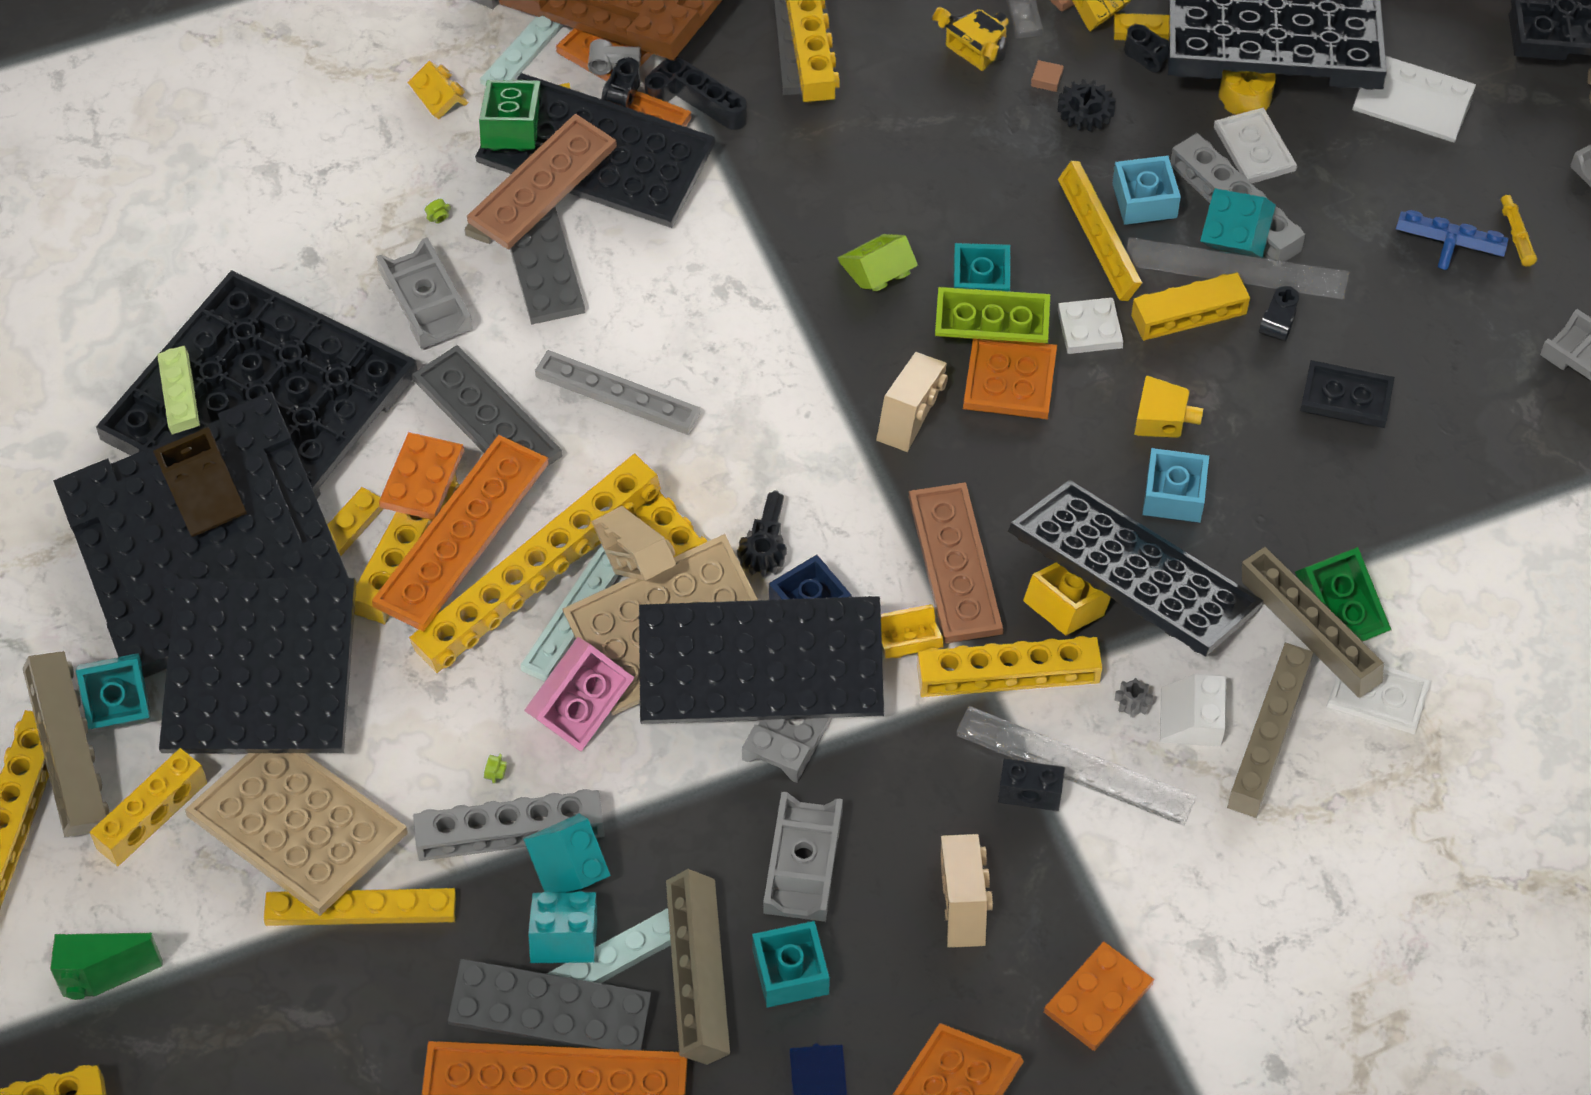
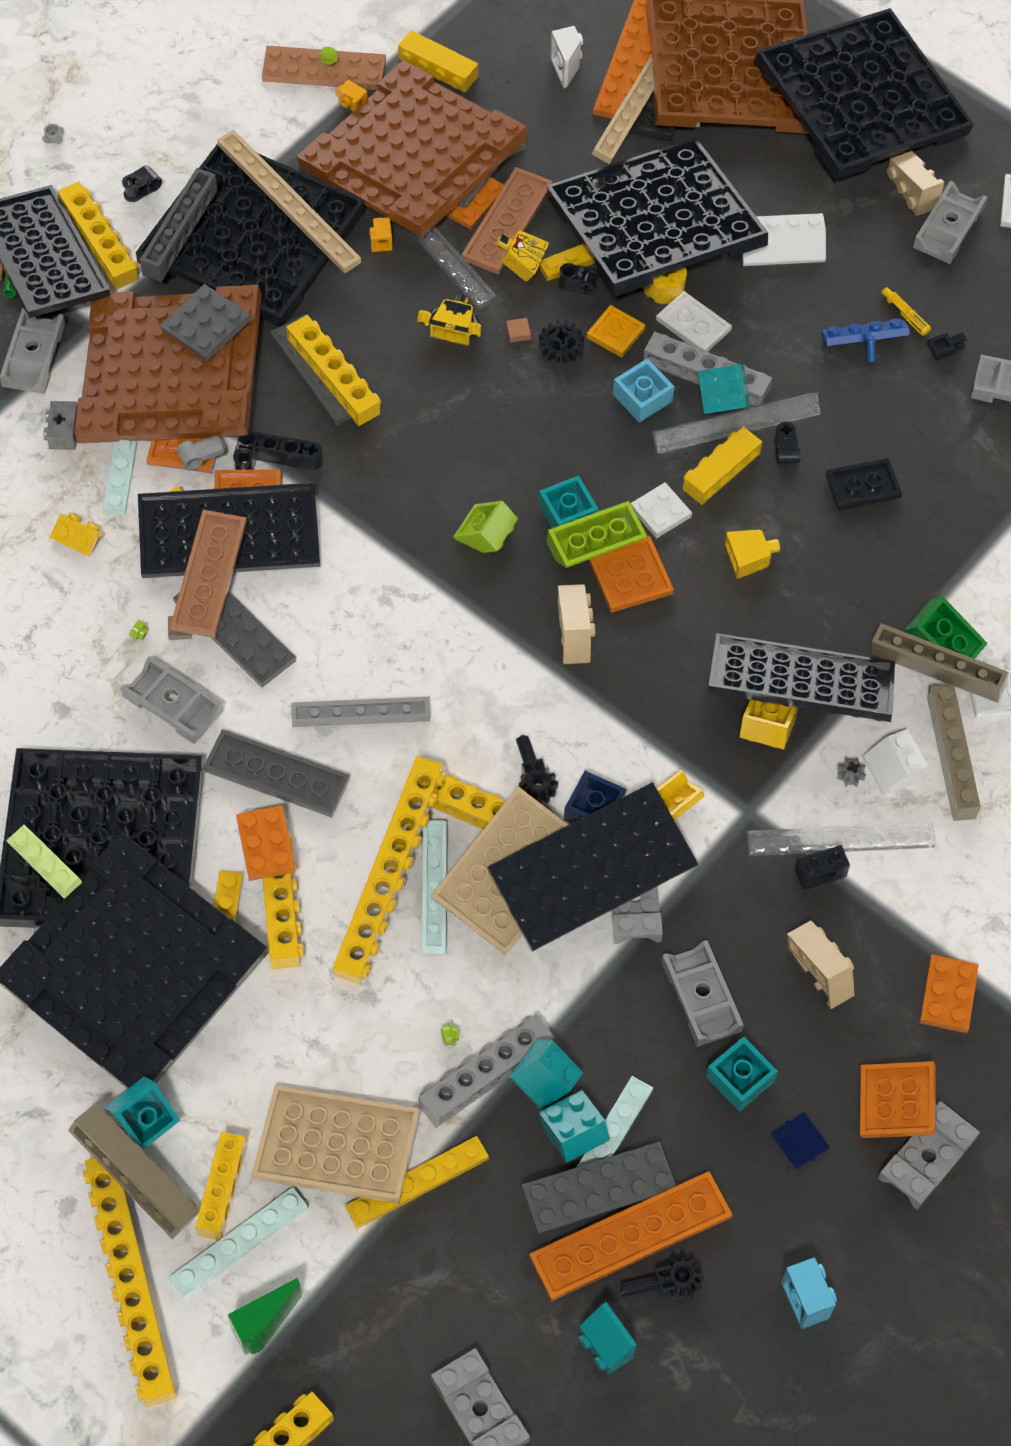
camera: 30 degrees left, 5 degrees up
(131, 876) = (238, 1243): none -> light aqua plate
(200, 481) = (116, 926): dark brown slope -> none
(258, 665) = (239, 1042): black plate -> none
(460, 533) = (321, 873): orange plate -> none
(509, 114) = (152, 530): green slope -> none
(579, 693) = (479, 951): bright pink slope -> none
(622, 82) = (220, 472): black piece -> none
(632, 545) = (459, 826): tan wedge -> none
(697, 967) = (680, 1107): dark tan brick -> none
(955, 563) = (674, 730): nougat plate -> none
(996, 676) = (712, 823): yellow brick -> none
(1099, 231) = (627, 435): yellow plate -> none
(1157, 119) = (616, 331): none -> light orange plate
(1176, 485) = (792, 604): medium azure brick -> none
(1541, 285) = (944, 346): none -> black plate

